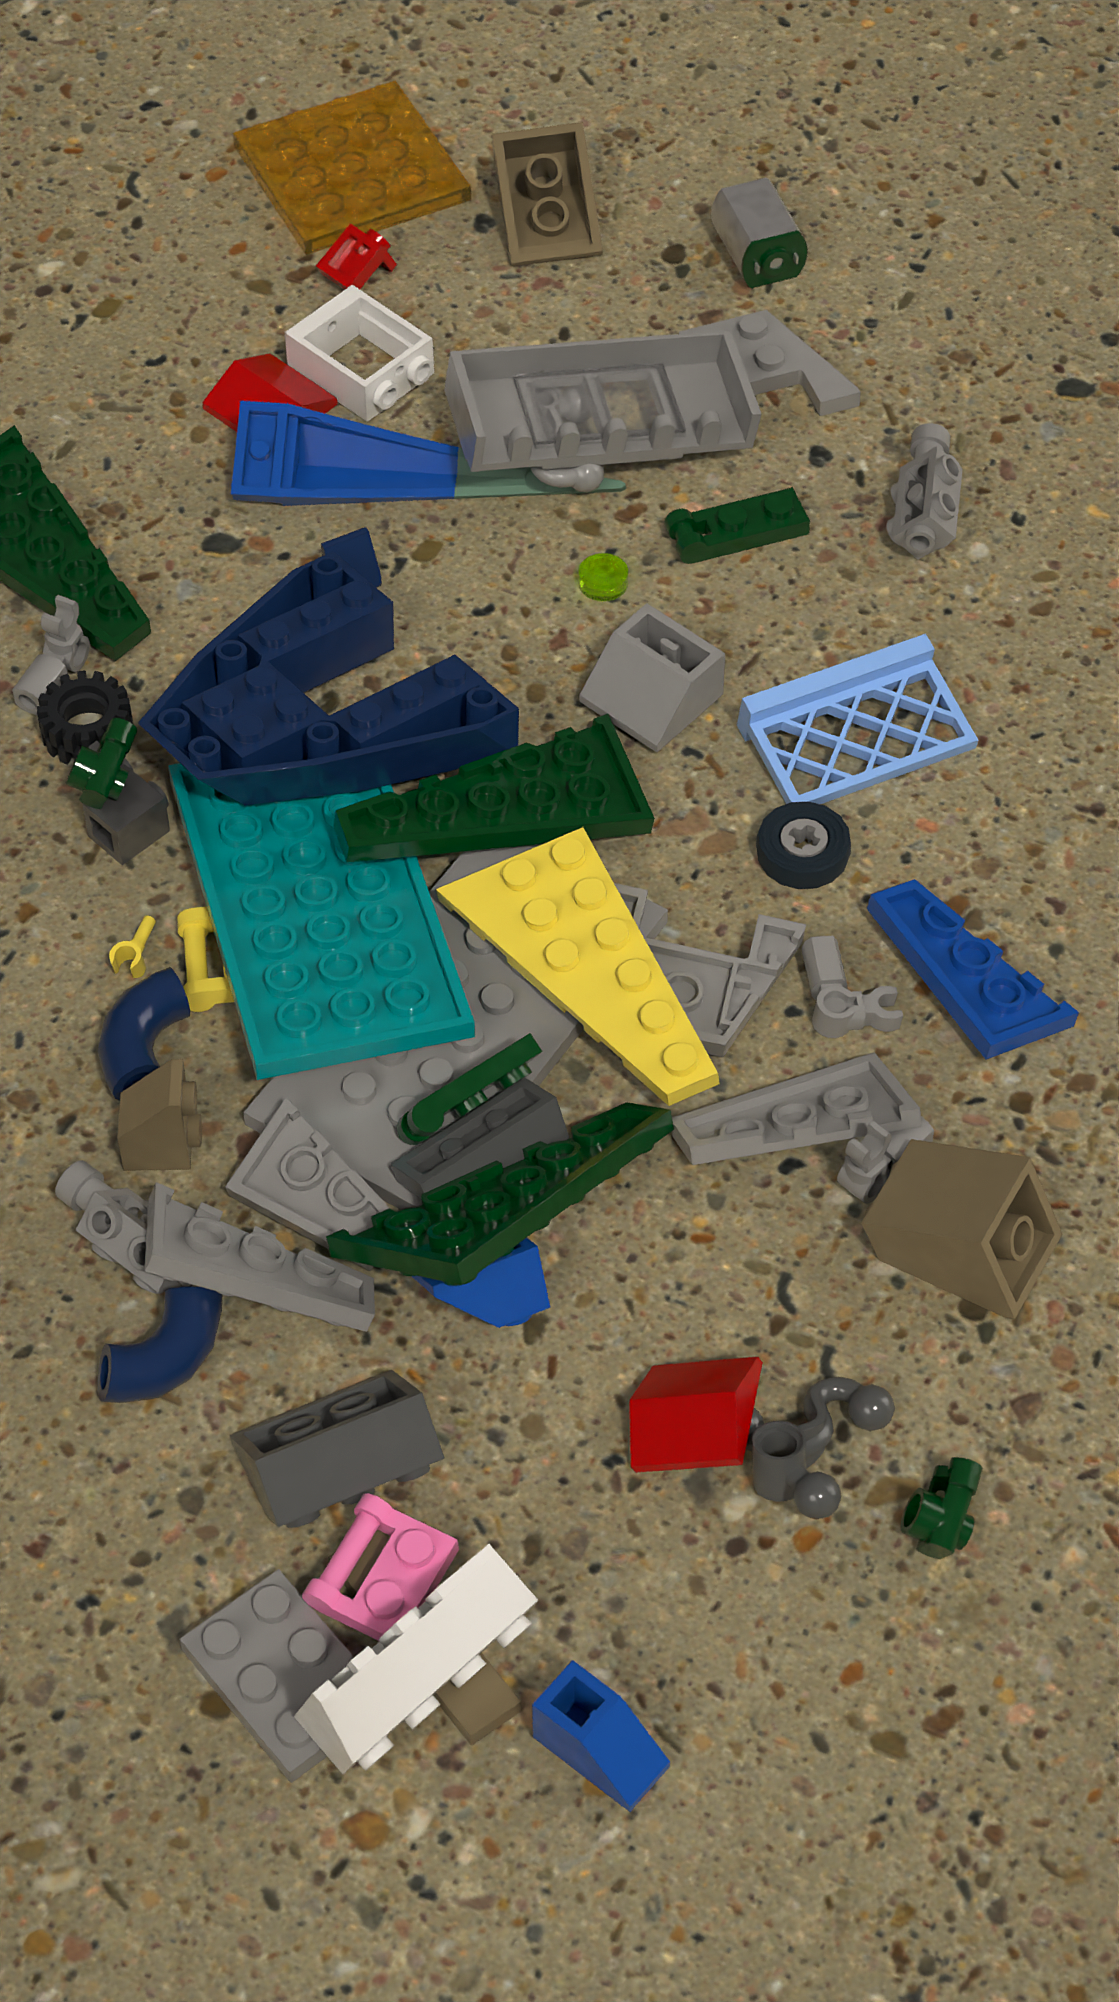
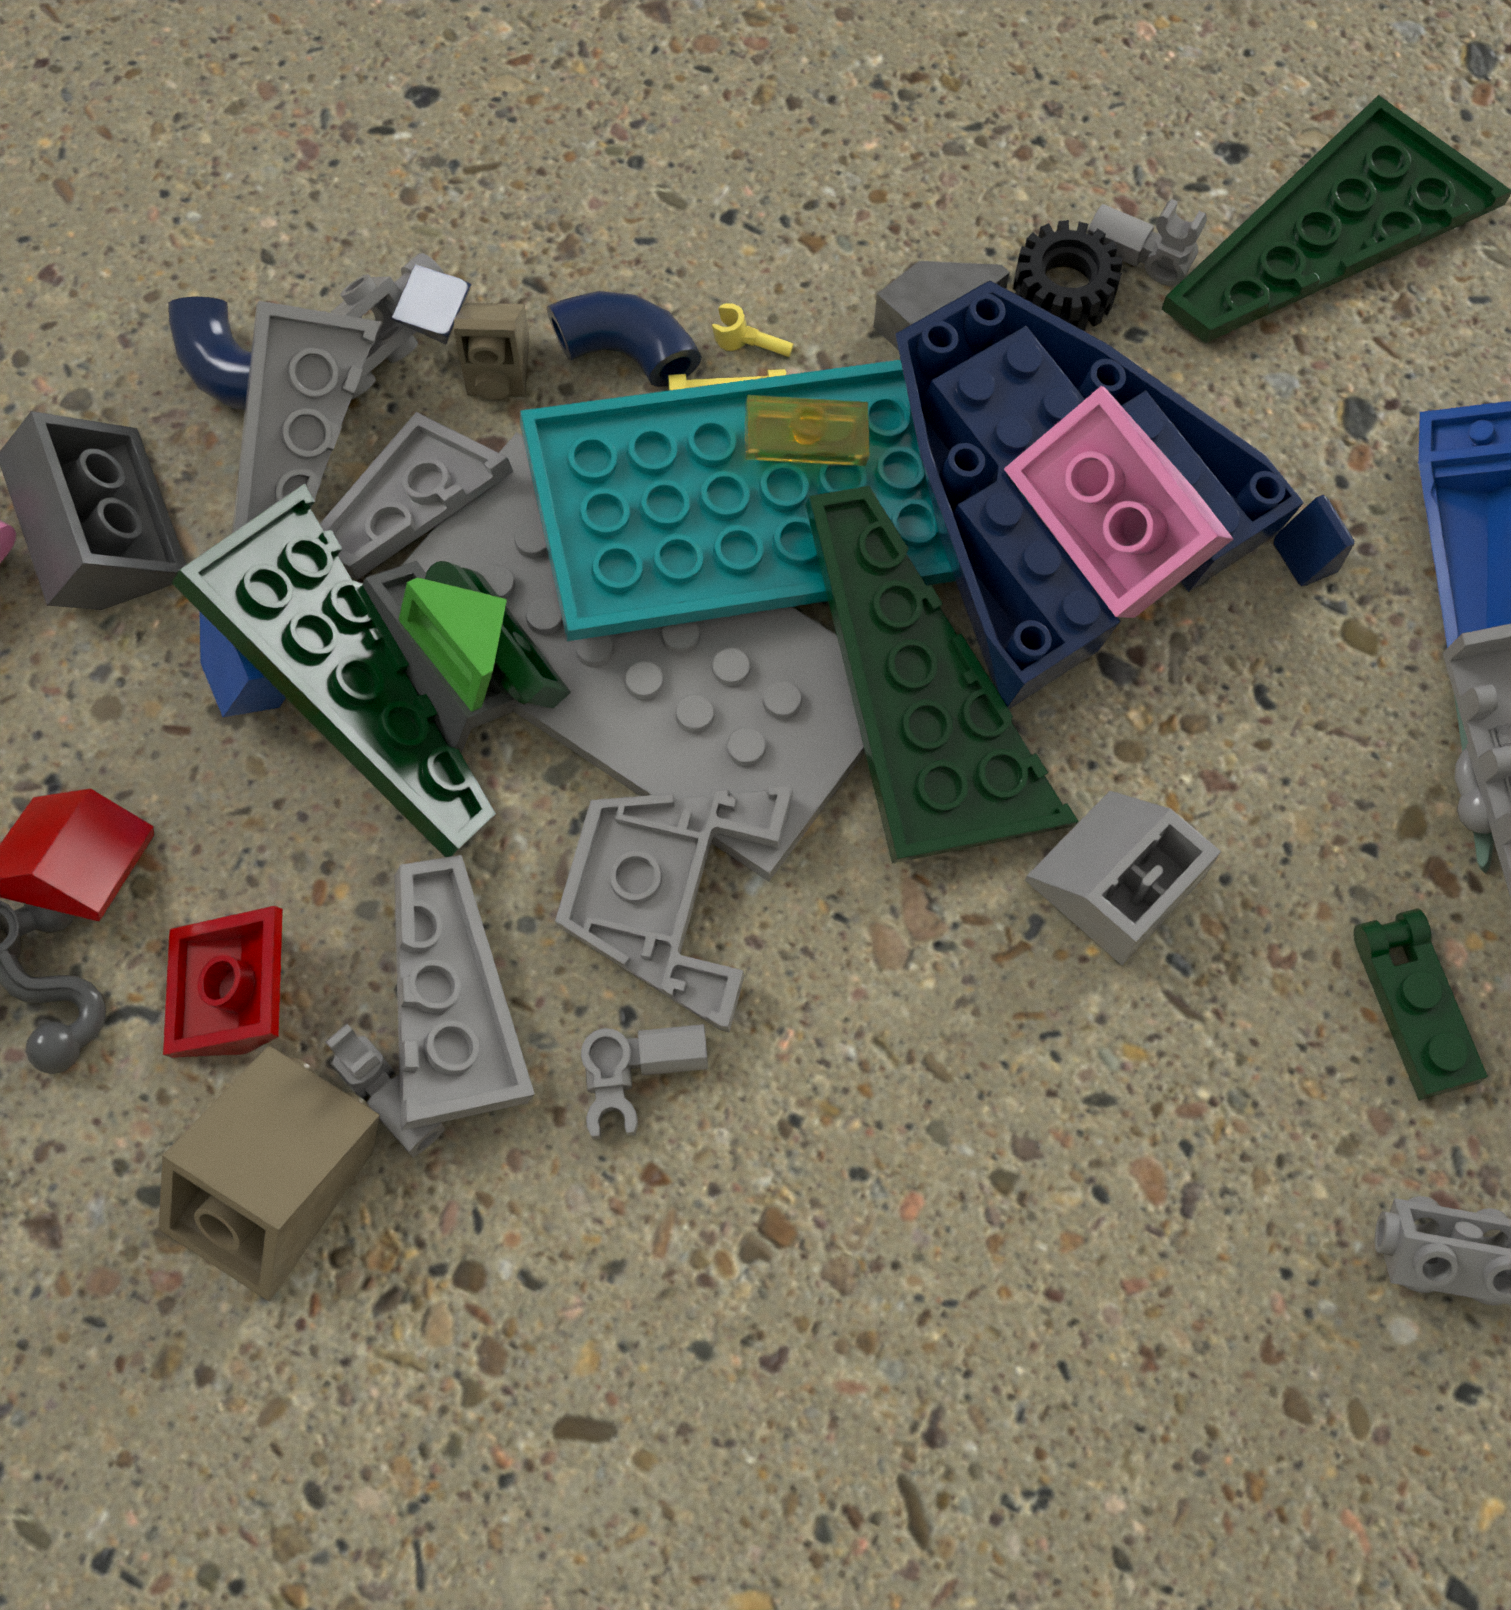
camera: 90 degrees right, 15 degrees up
(99, 771) = (942, 262): dark green plate -> none
(122, 1157) = (431, 302): none -> slope
(267, 869) = (806, 430): none -> clear yellow plate
(364, 638) = (1117, 505): none -> bright pink slope
(490, 1093) = (456, 632): none -> bright green slope
(582, 949) = (701, 752): light yellow wing -> none
(603, 577) = (1319, 833): clear neon green tile -> none
(801, 1278) = (223, 985): none -> red slope
(813, 864) = (878, 1074): black bush -> none
(846, 685) = (1115, 1102): light blue fence -> none
(966, 973) = (641, 1231): blue wing -> none

